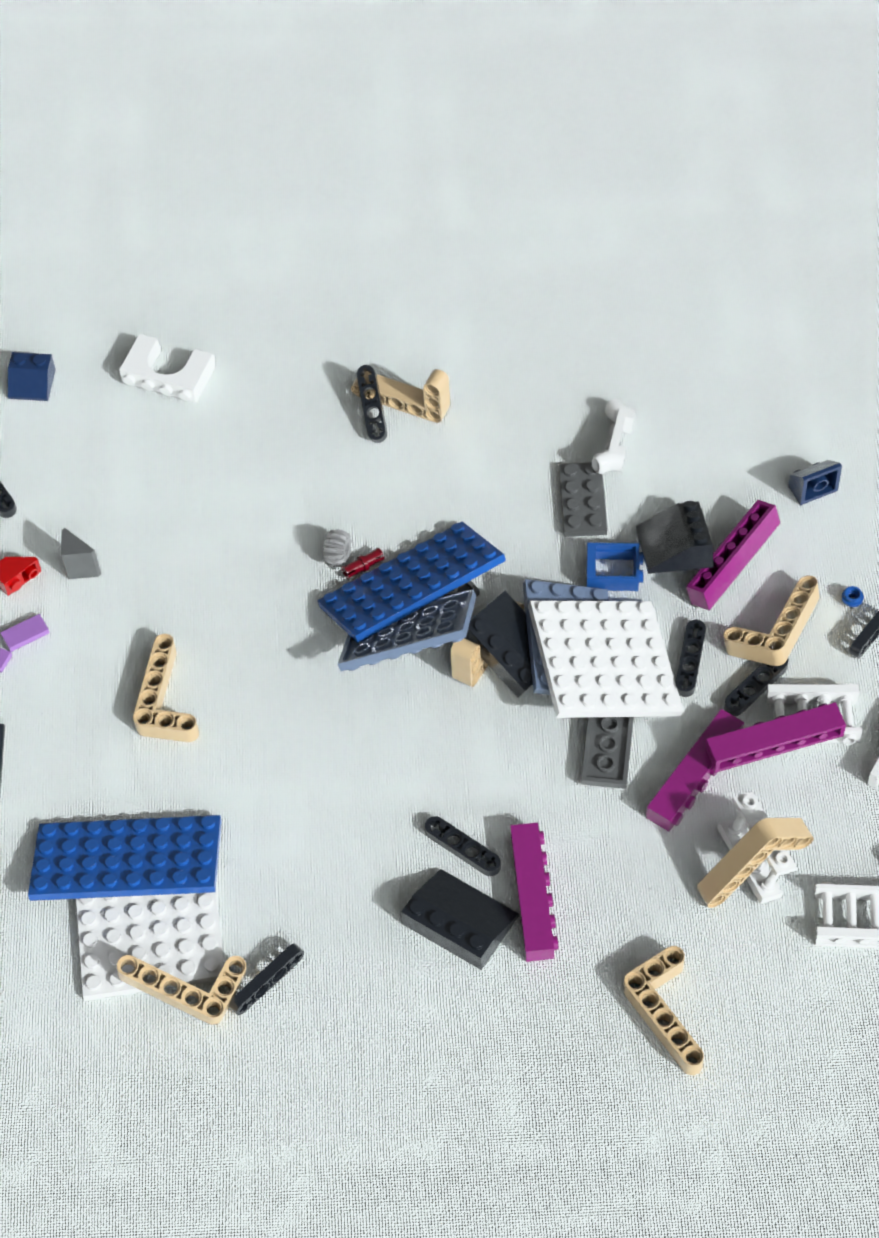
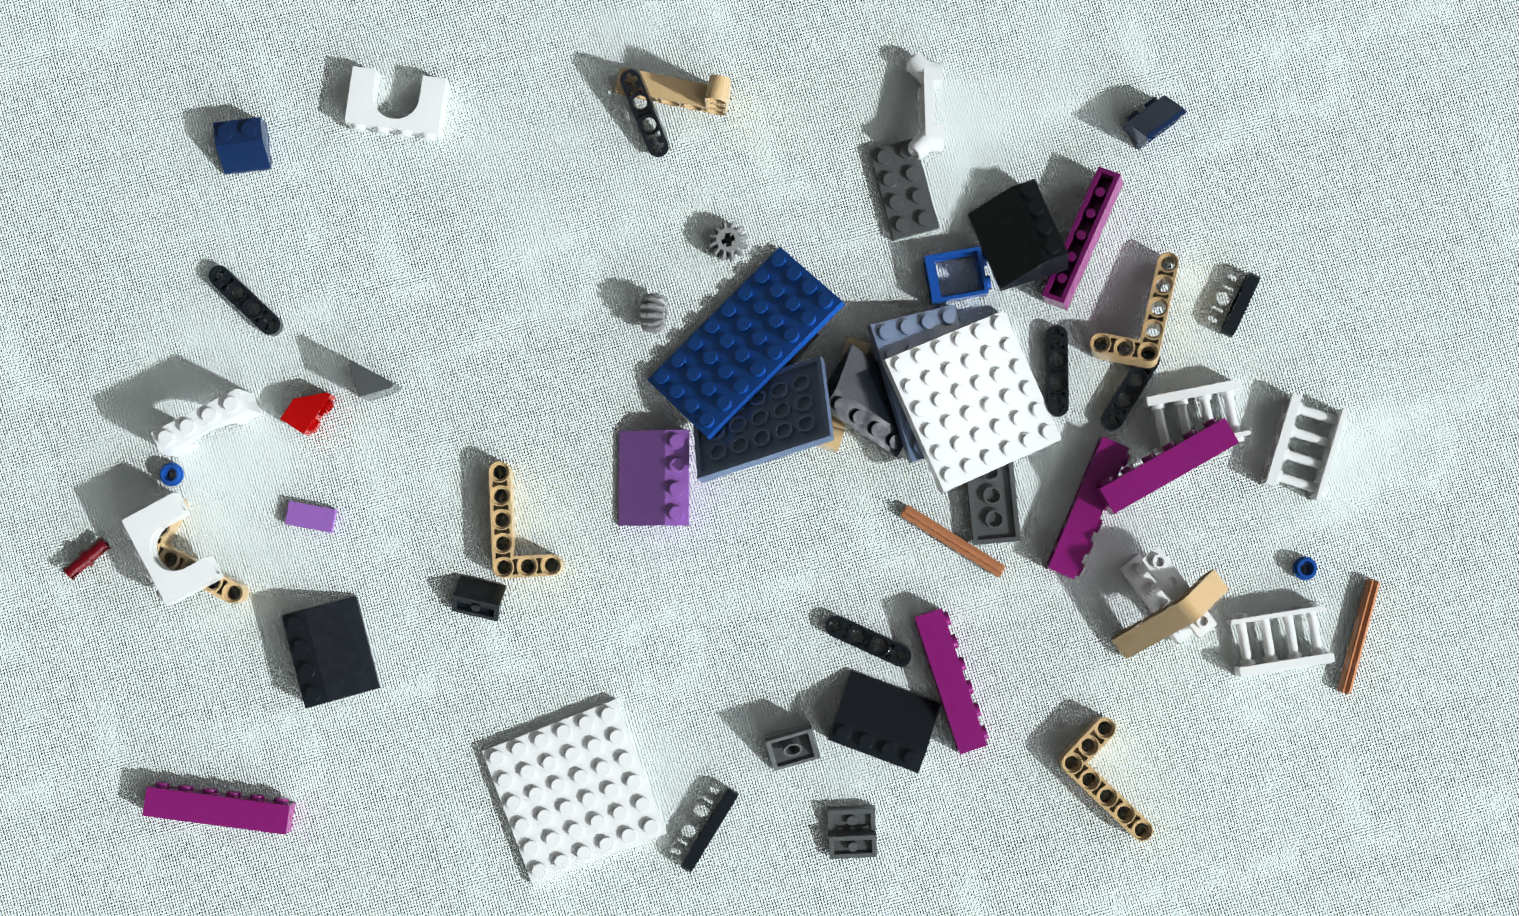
camera: 20 degrees left, 30 degrees up
(25, 632) = (342, 480): medium lavender tile -> none
(111, 745) = (478, 598): none -> black panel
(126, 858) = (532, 731): blue plate -> none
(184, 989) = (634, 864): tan beam -> none
(302, 677) = (654, 478): none -> medium lavender slope
(362, 563) = (684, 322): dark red pin -> none
(365, 918) = (791, 746): none -> dark grey slope
(404, 1010) = (852, 832): none -> dark grey slope
(417, 509) = (720, 237): none -> light grey gear
(563, 777) = (952, 541): none -> nougat axle
(855, 592) = (1220, 261): blue plate -> none

